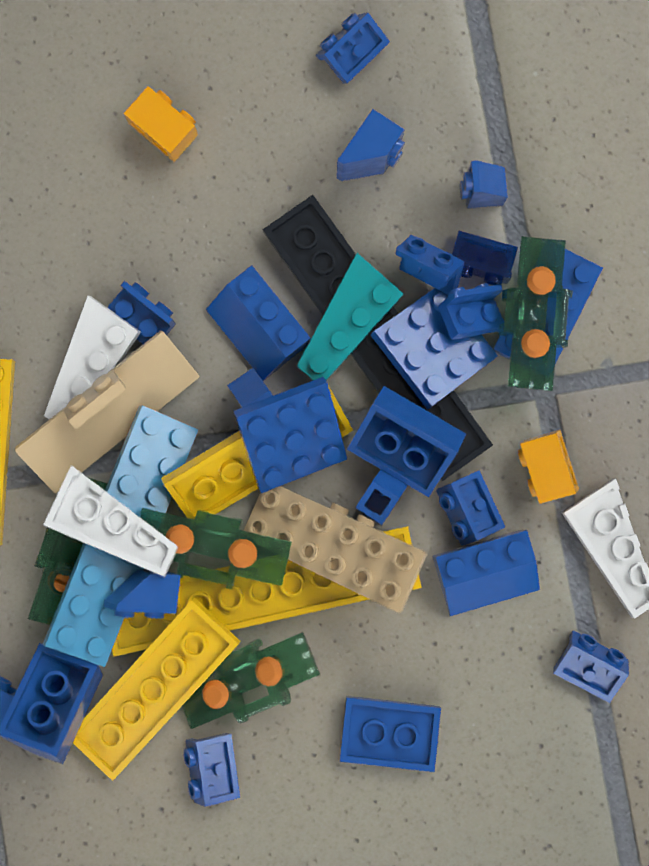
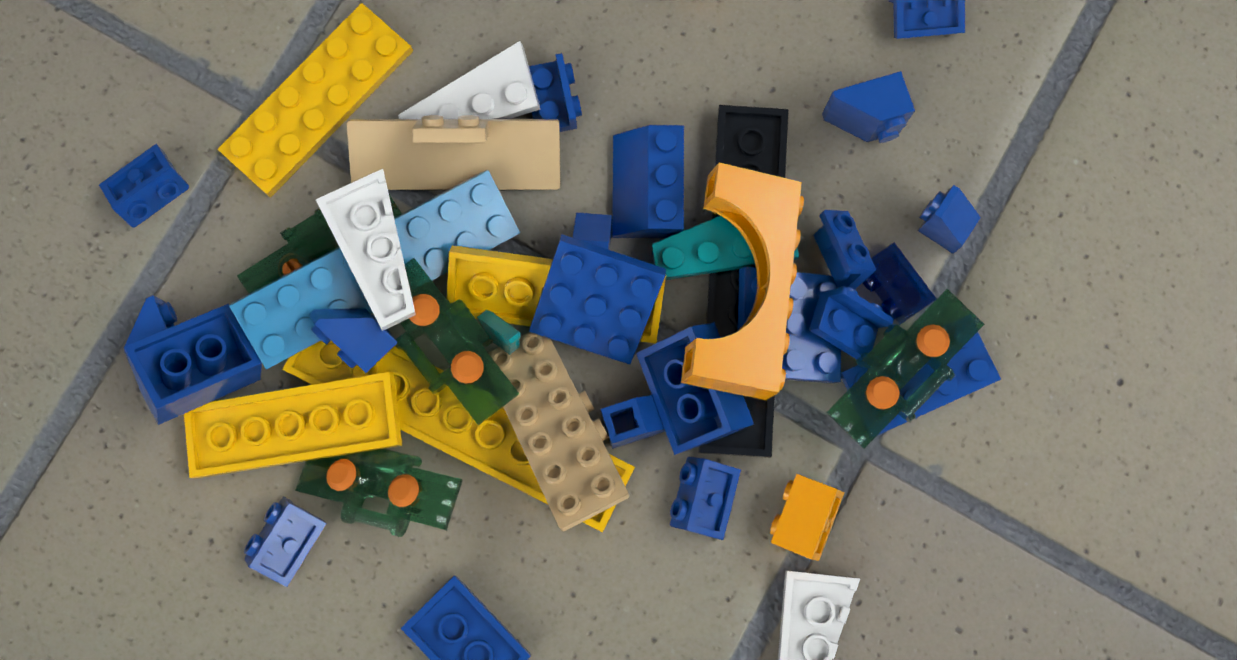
camera: 40 degrees right, 5 degrees down
(242, 509) = (501, 332): none -> teal tile
(362, 285) = (767, 216): none -> light orange arch
(487, 572) = (673, 568): blue slope -> none

